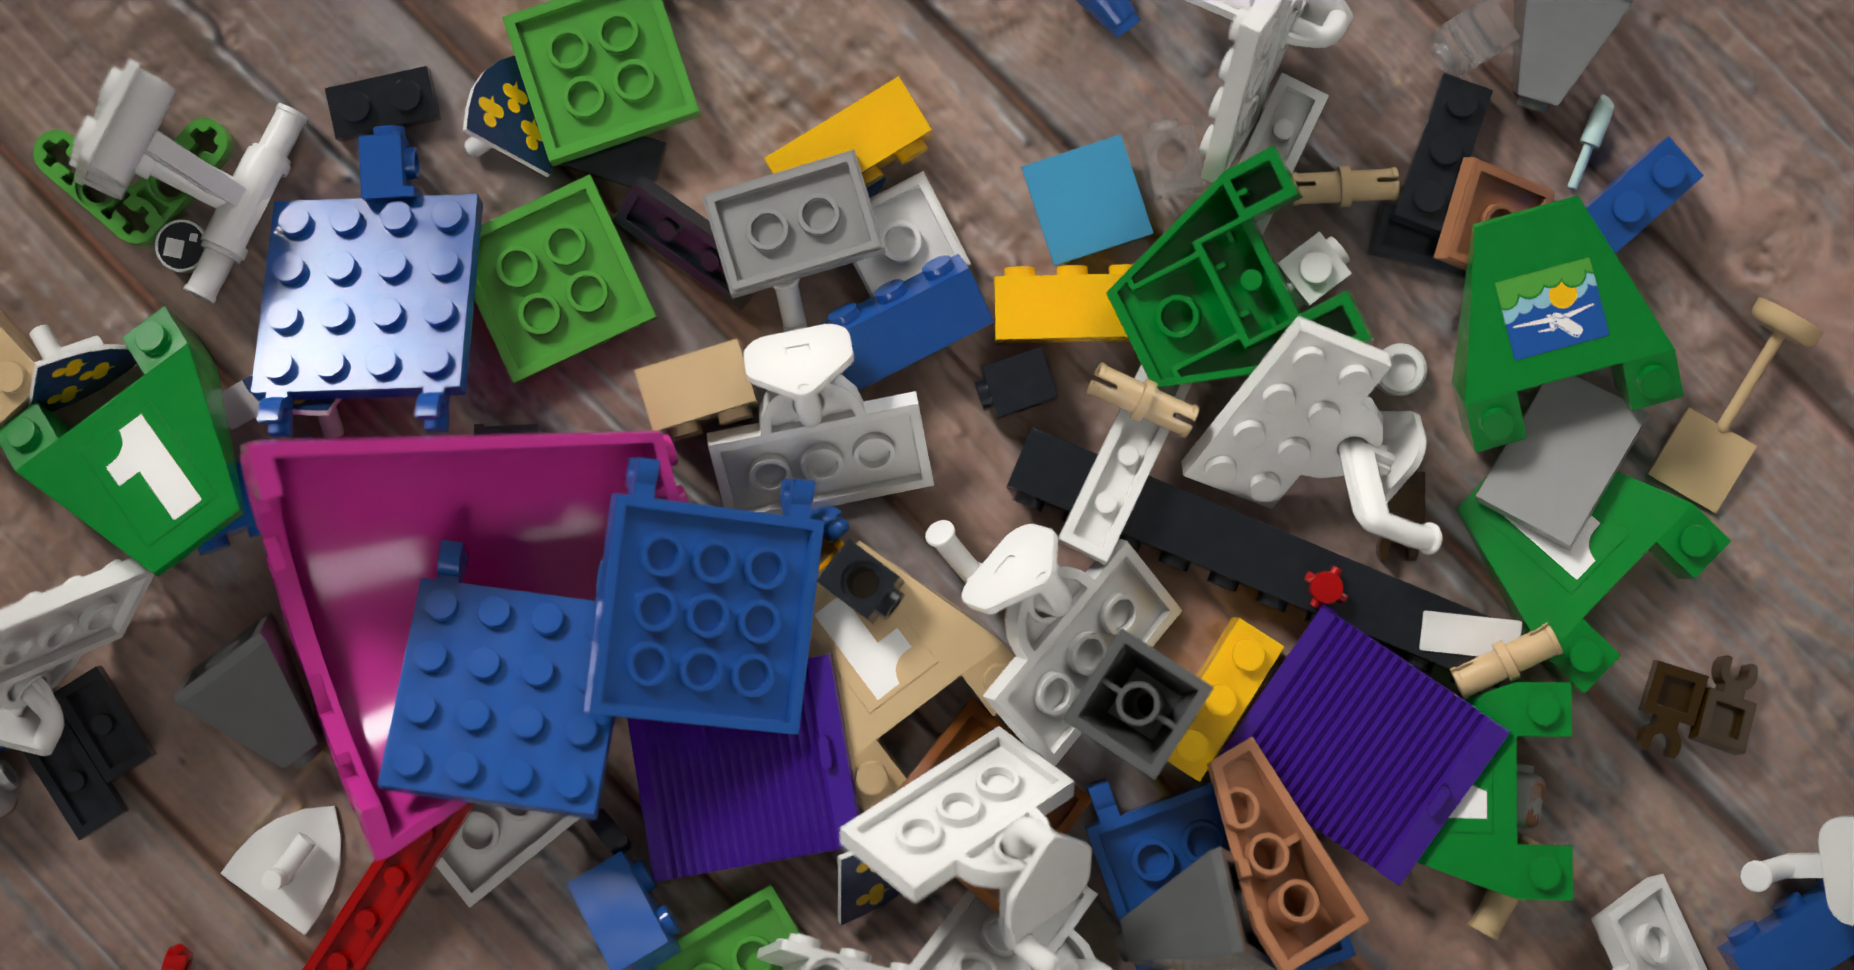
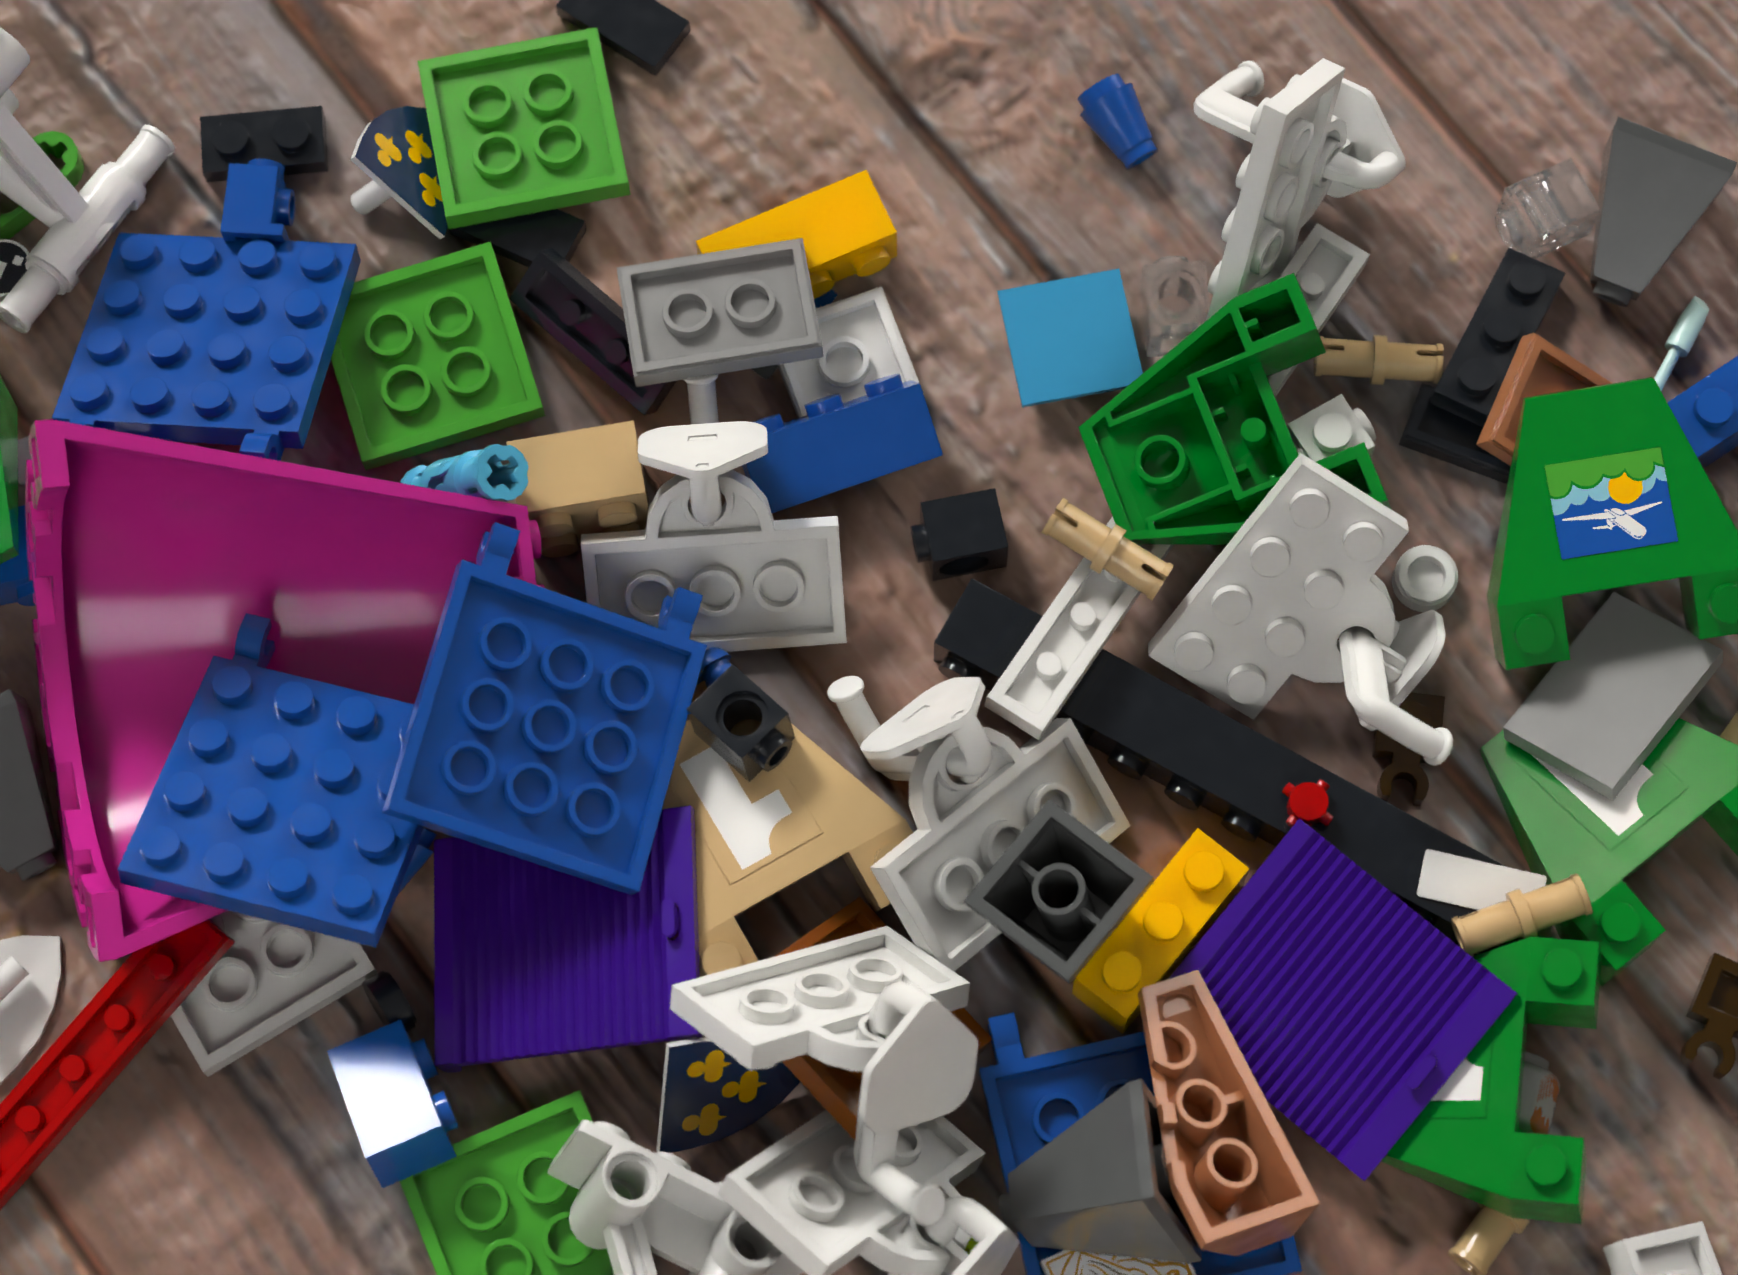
camera: 10 degrees right, 15 degrees down
(604, 403) = (476, 473): none -> medium azure piece
(1056, 306) = (1020, 453): yellow brick -> none

